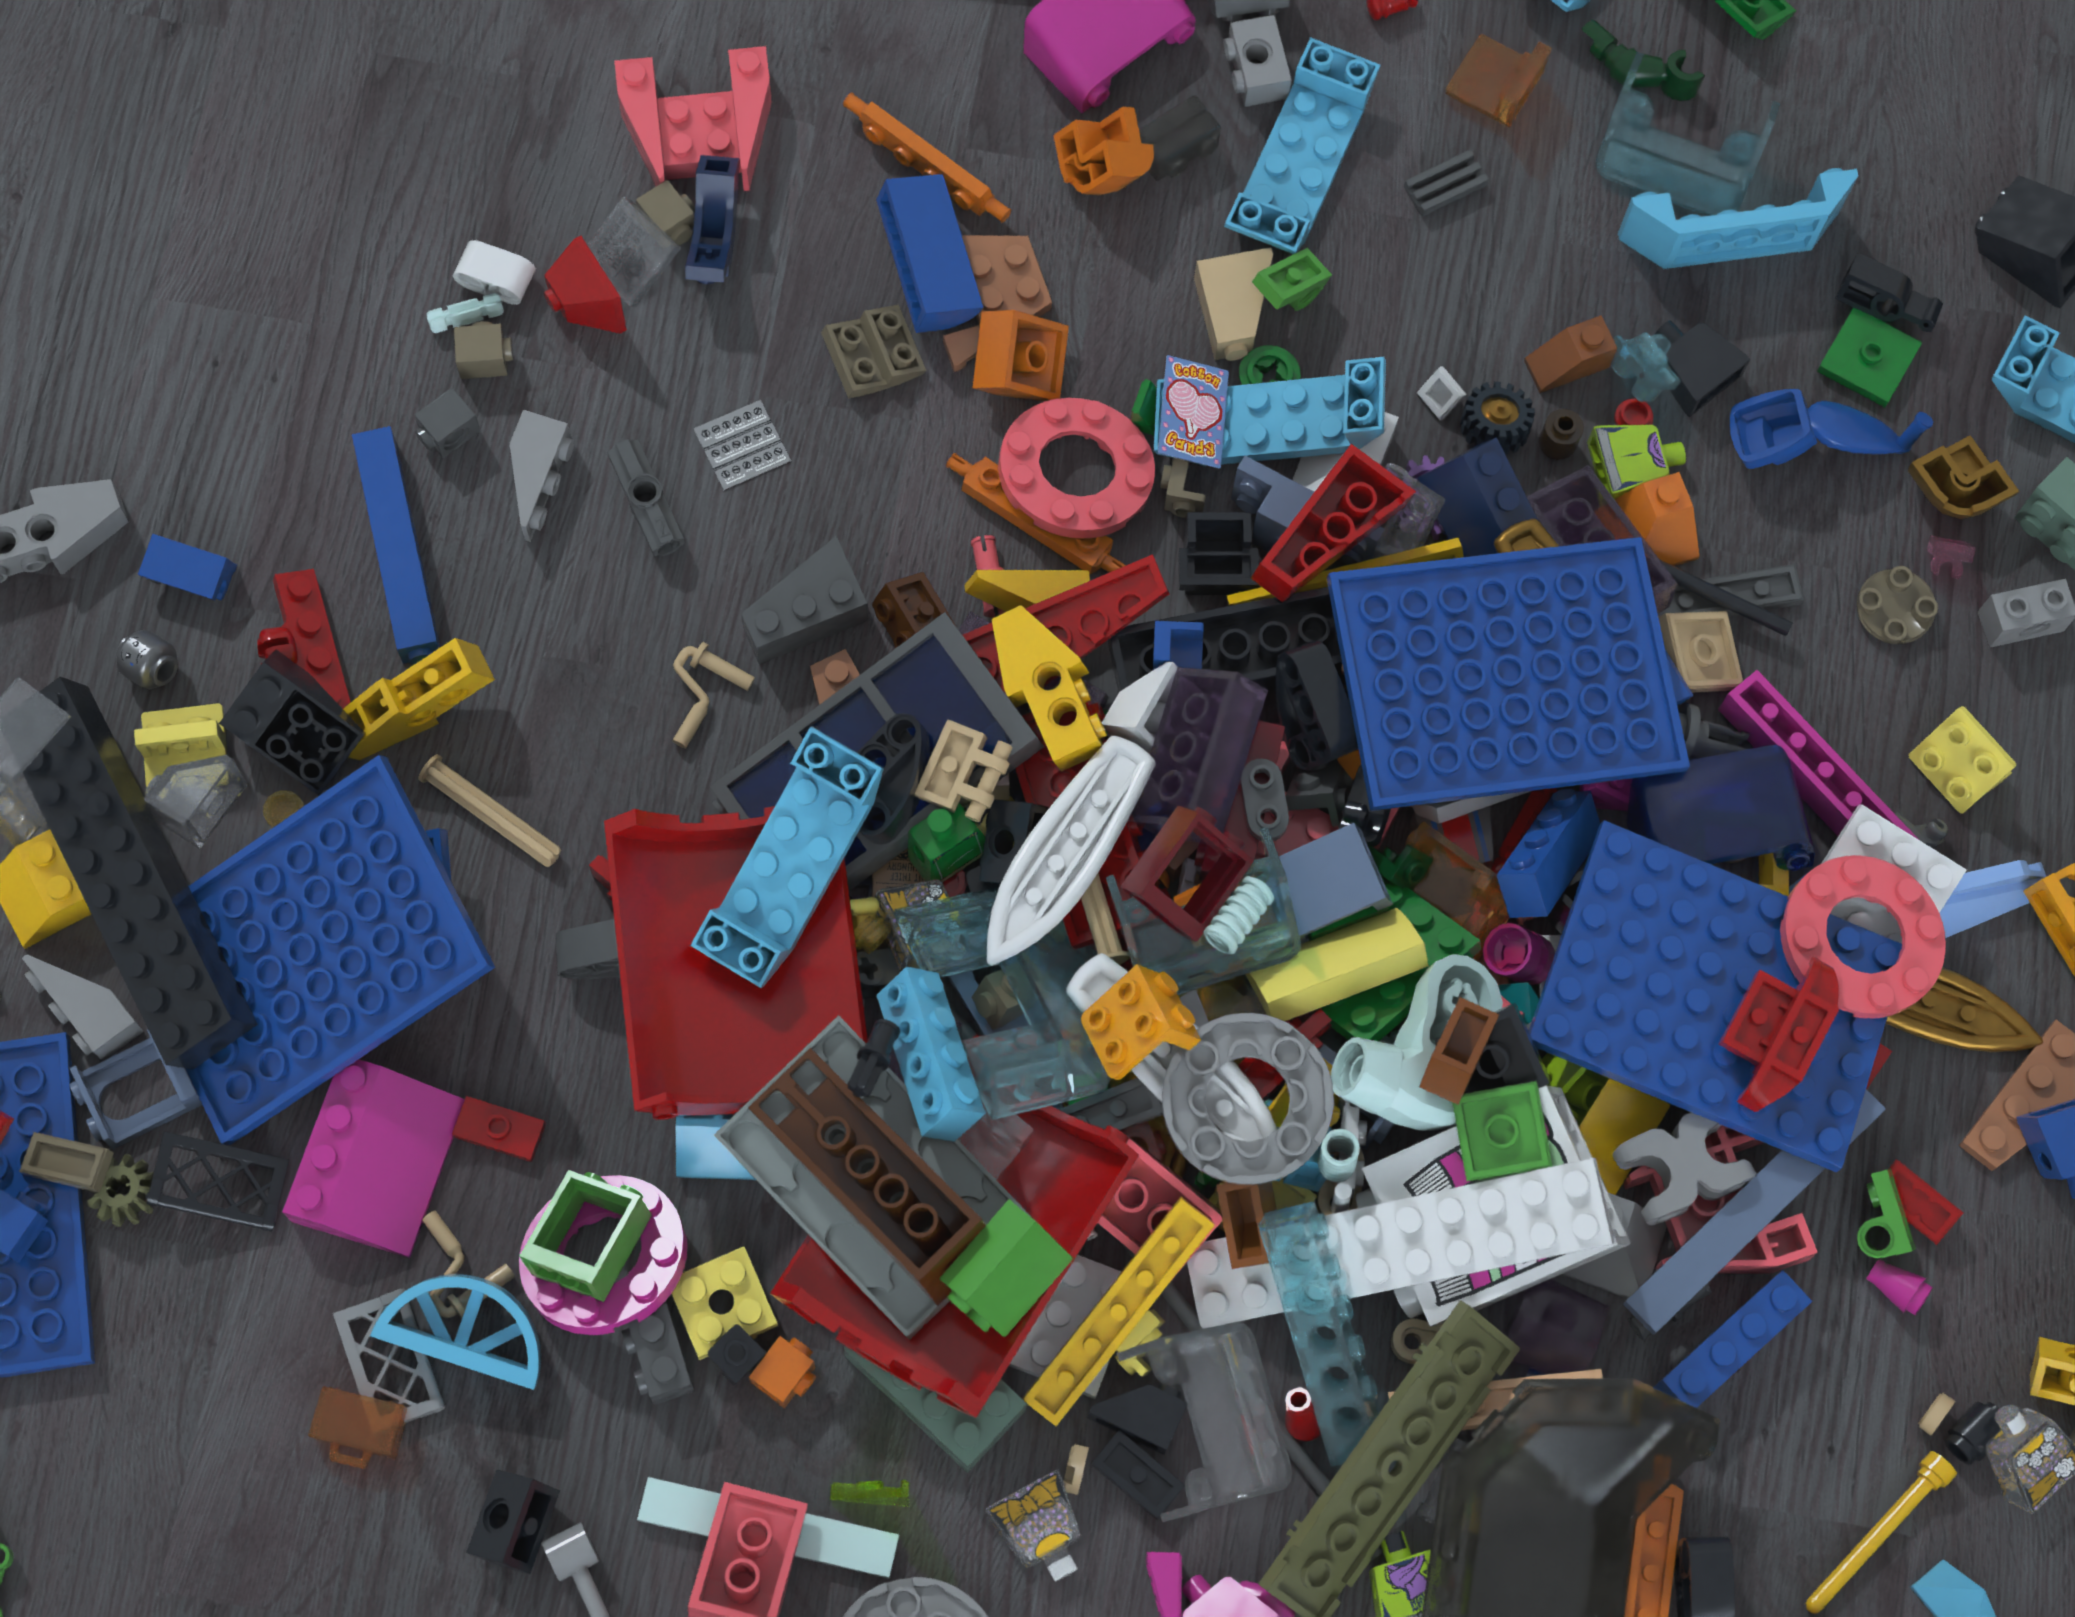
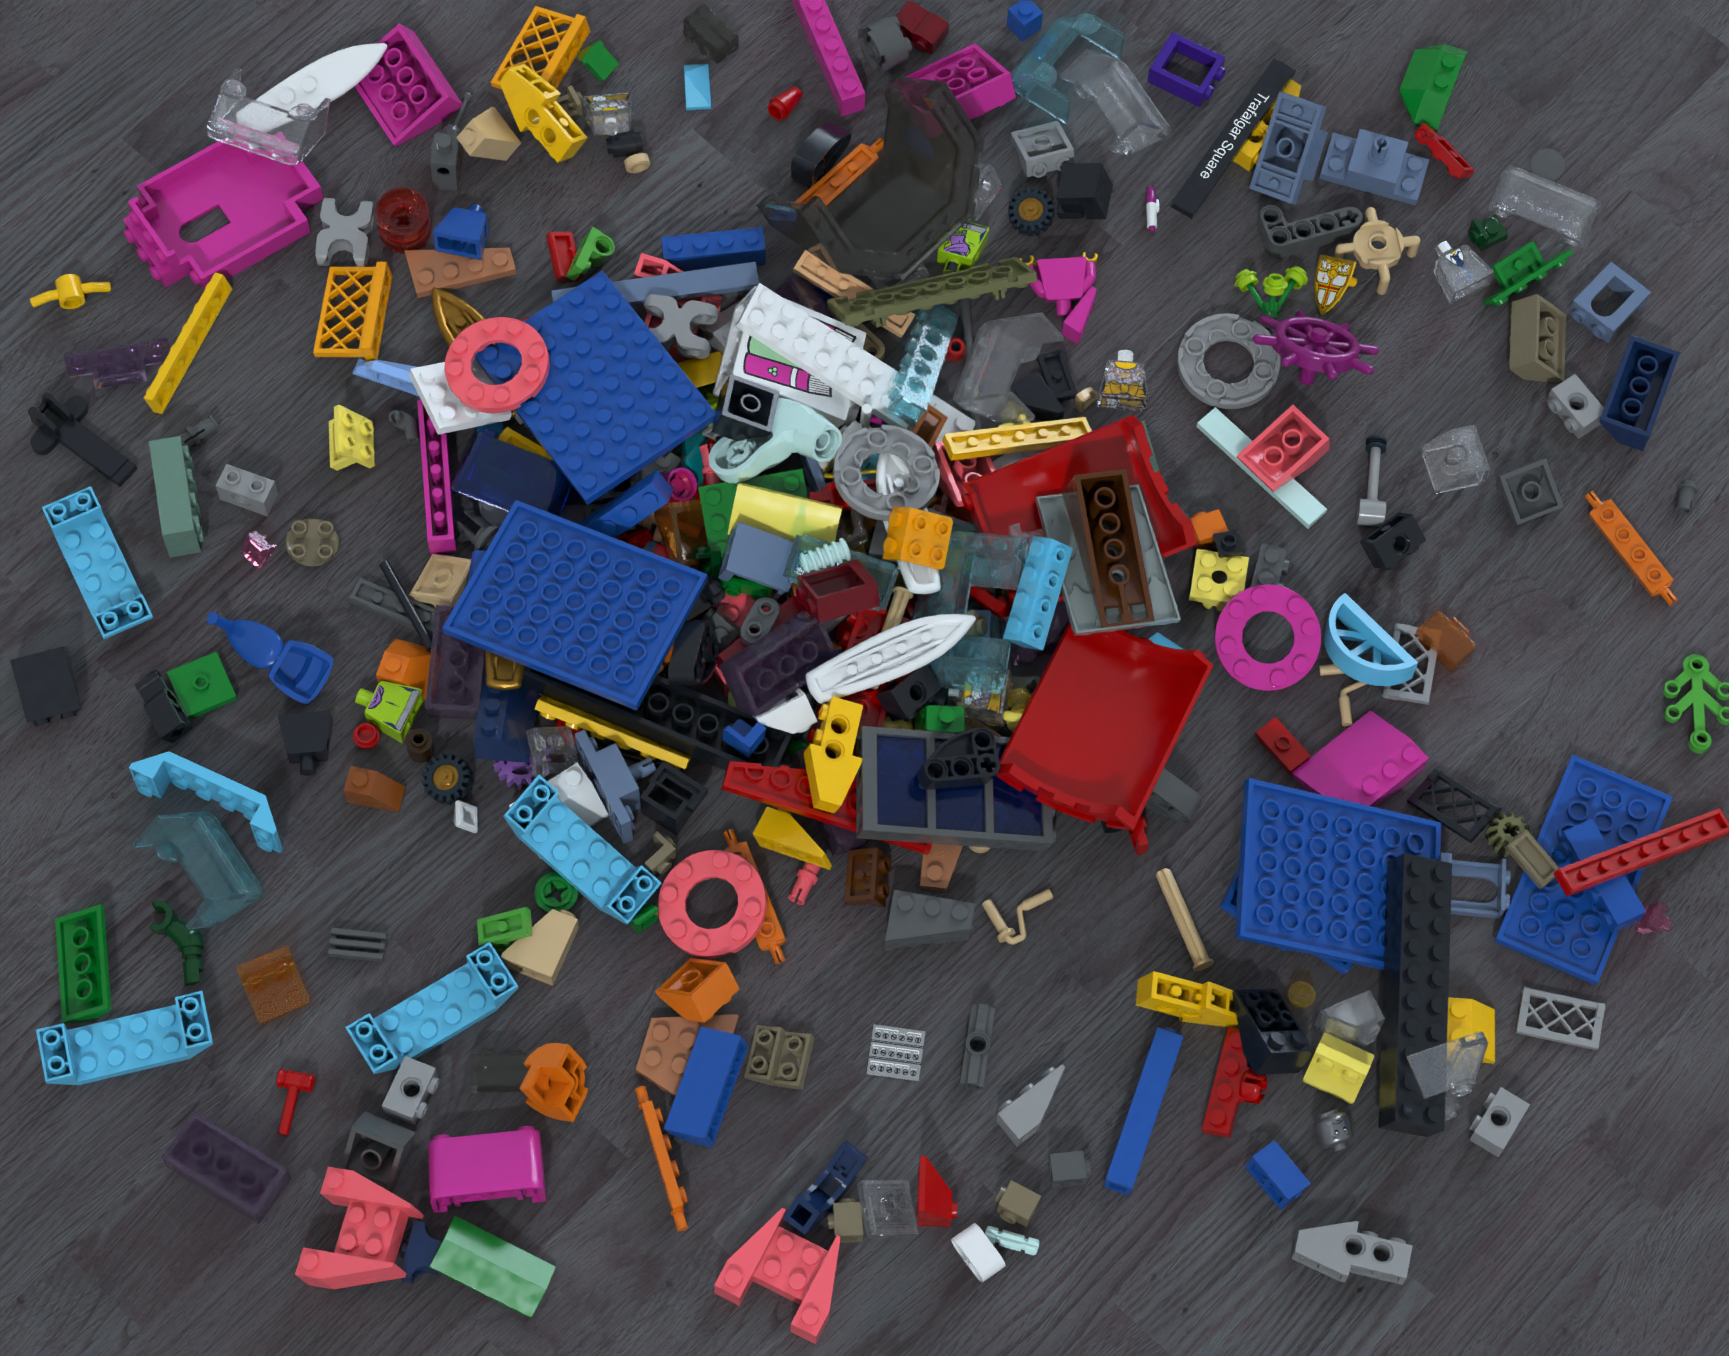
camera: 145 degrees left, 5 degrees down
(92, 1009) = (1474, 944): light grey slope -> none
(575, 1189) = (1295, 627): bright green window -> none
(791, 859) = (1048, 743): medium azure slope -> none
(871, 1493) = (1194, 443): clear neon green tile -> none
(873, 1058) = (1074, 597): black axle -> none
(952, 765) = (918, 741): tan plate -> none
(1004, 1270) = (1071, 461): bright green brick -> none
(1193, 411) = (624, 884): sticker -> none
(1339, 514) = (610, 742): red wedge -> none
(1340, 1141) = (854, 421): light aqua piece -> none
(1458, 1050) = (766, 411): dark orange slope -> none
(1502, 1131) = (770, 371): bright green tile -> none
(1647, 361) = (339, 751): clear light blue hips -> none
(1781, 1030) = (583, 336): red plate -> none
(1900, 1286) = (605, 222): dark pink cone -> none
(1934, 1473) = (662, 141): yellow piece -> none
(1962, 480) = (219, 577): pearl gold brick -> none

